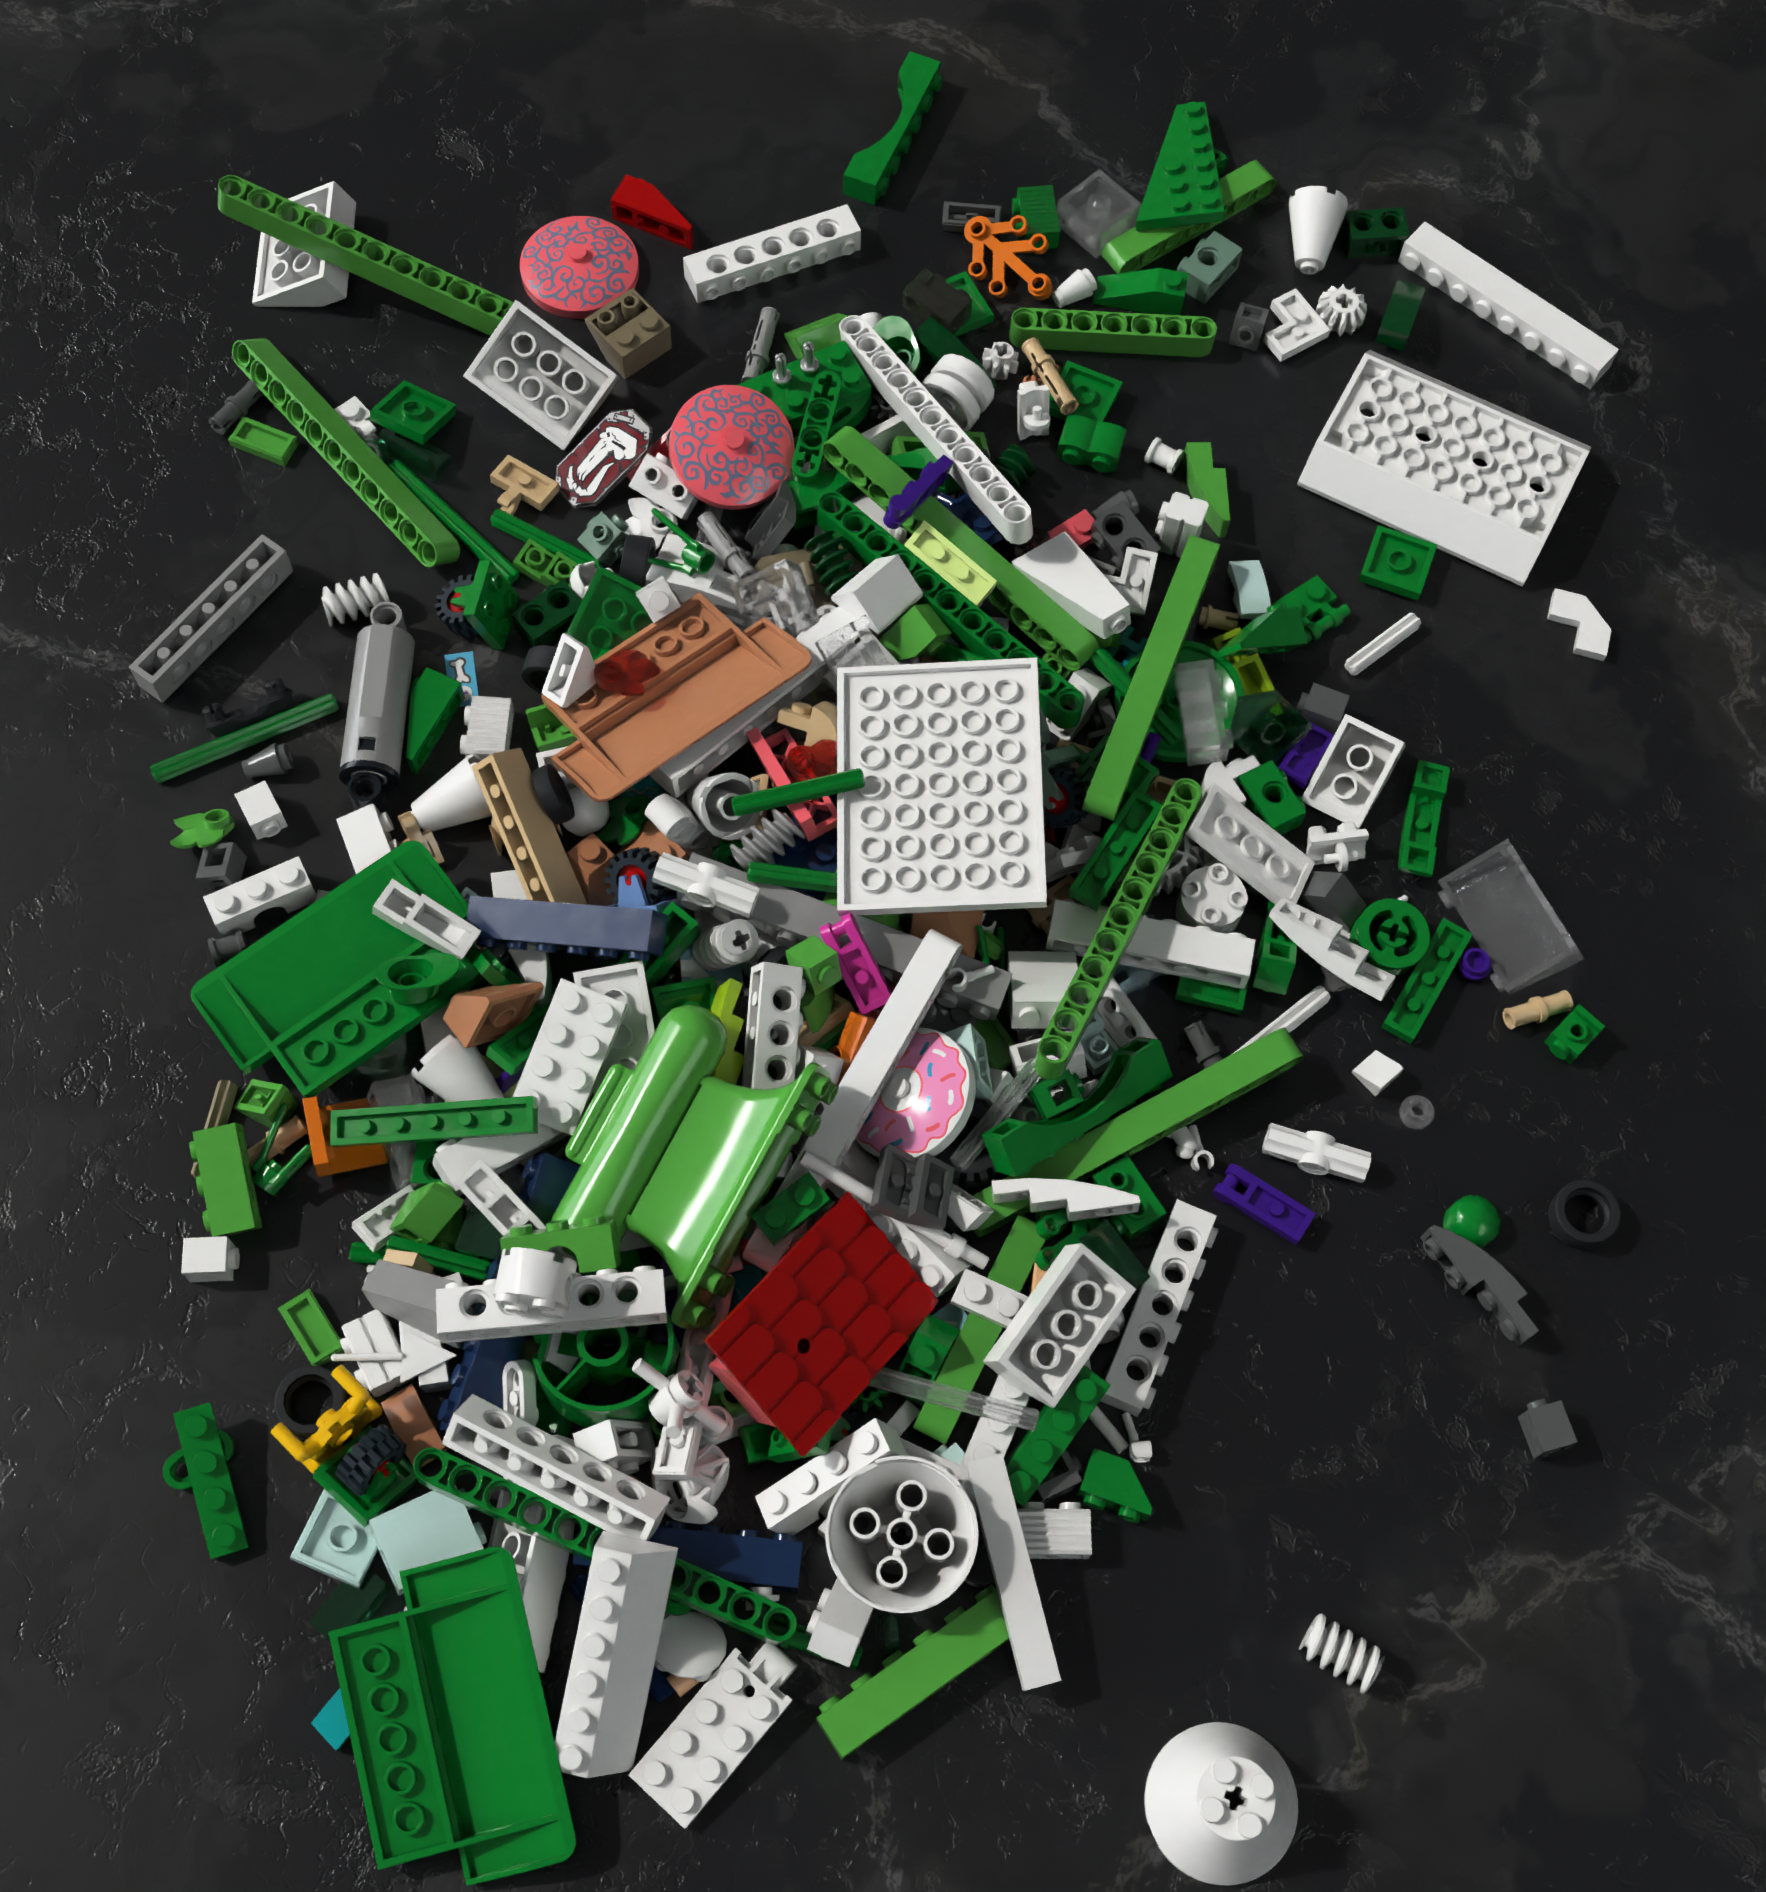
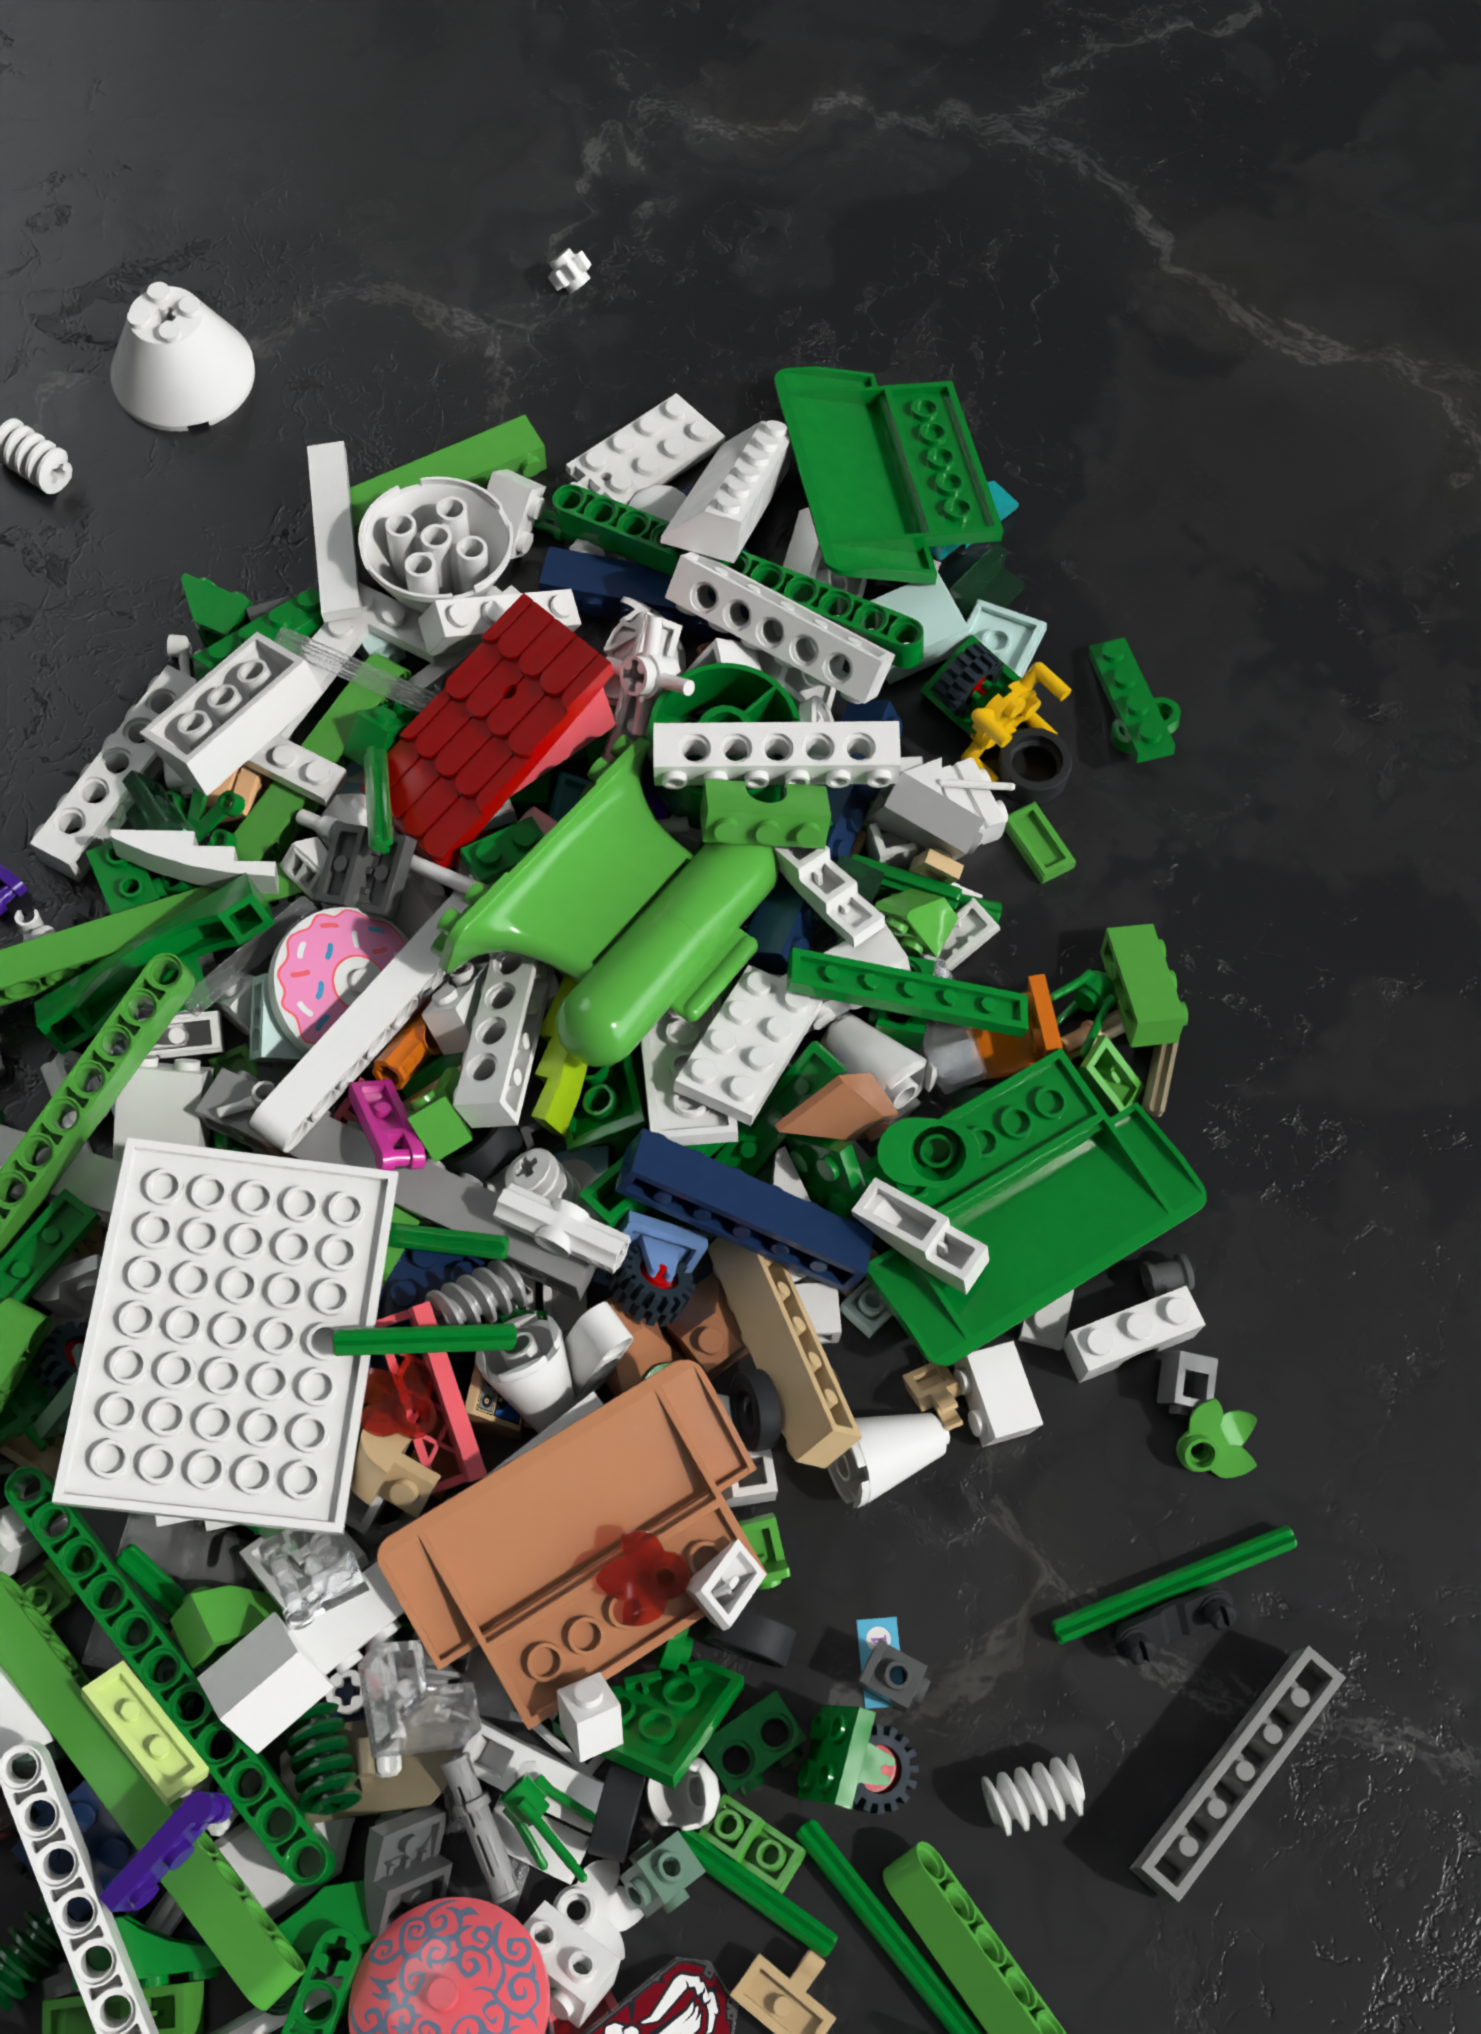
camera: 175 degrees left, 0 degrees up
(209, 1259) = (1158, 907): white brick -> none
(261, 810) = (1142, 1461): white brick -> none
(270, 761) = (1135, 1539): dark grey cone -> none
(377, 707) = (995, 1601): light grey piece -> none
(412, 1422) = (927, 730): nougat slope -> none
(432, 707) = (924, 1600): green slope -> none
(461, 661) = (877, 1682): none -> dark grey brick
(488, 726) = (843, 1559): white brick -> none
(534, 1281) = (791, 735): white brick -> none
(912, 1250) = (378, 800): none -> green axle
(1056, 1532) = (279, 575): white brick -> none

